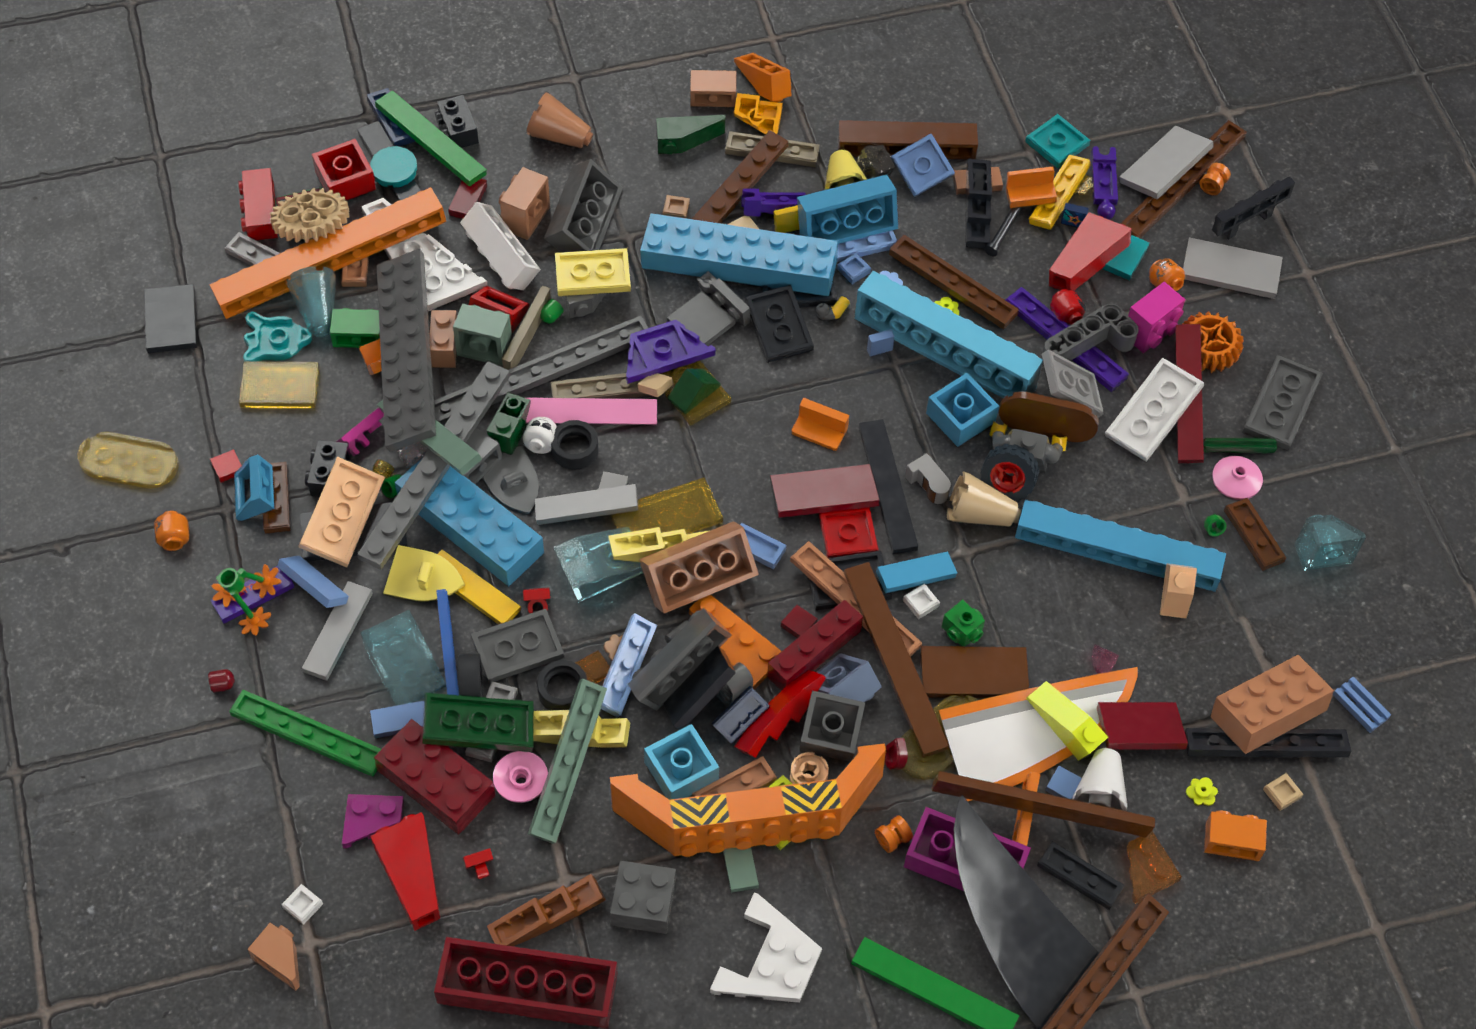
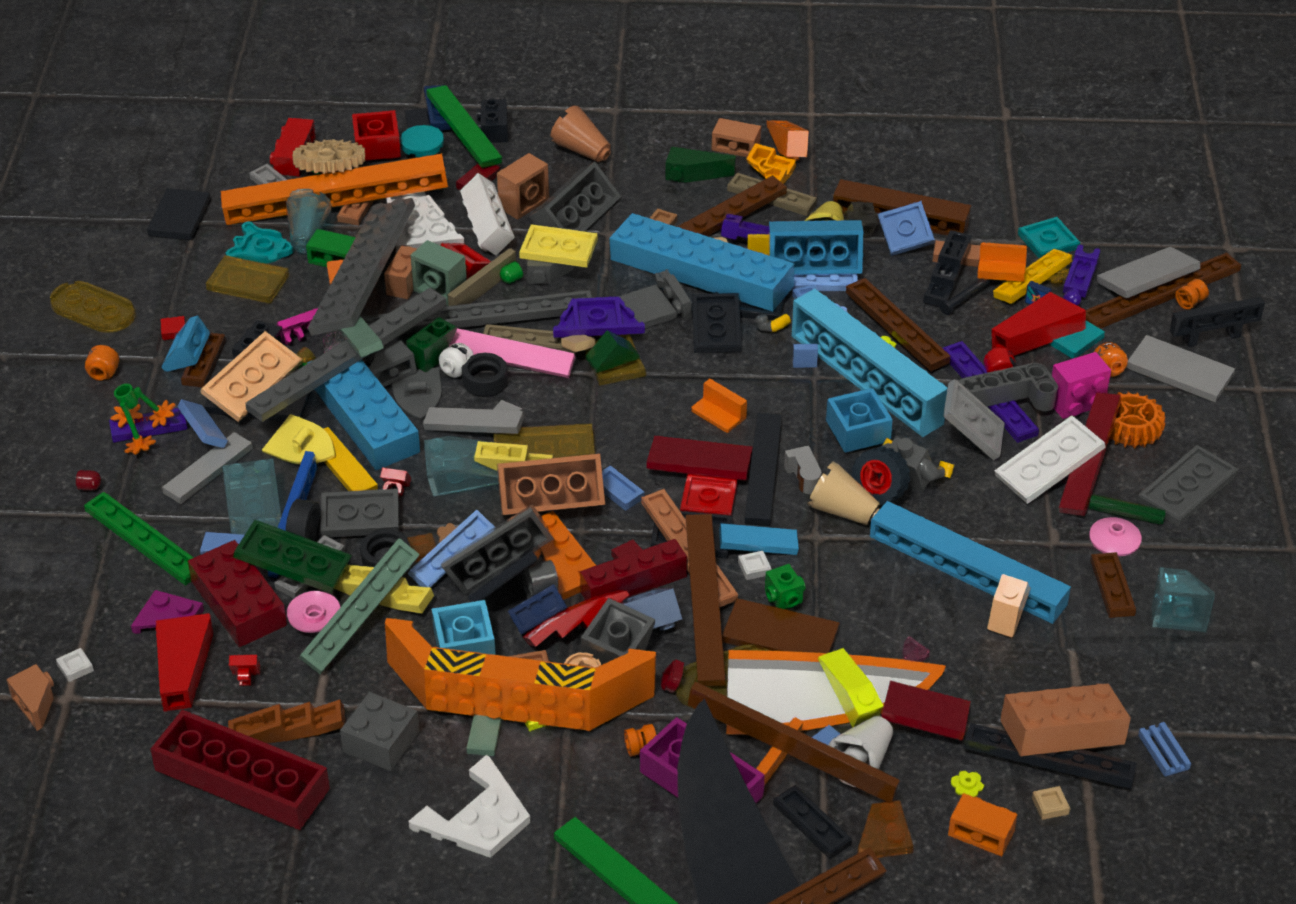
camera: 20 degrees right, 15 degrees down
(1048, 416) = (943, 440): reddish brown tile -> none
(1220, 525) = (1079, 566): green hinge -> none

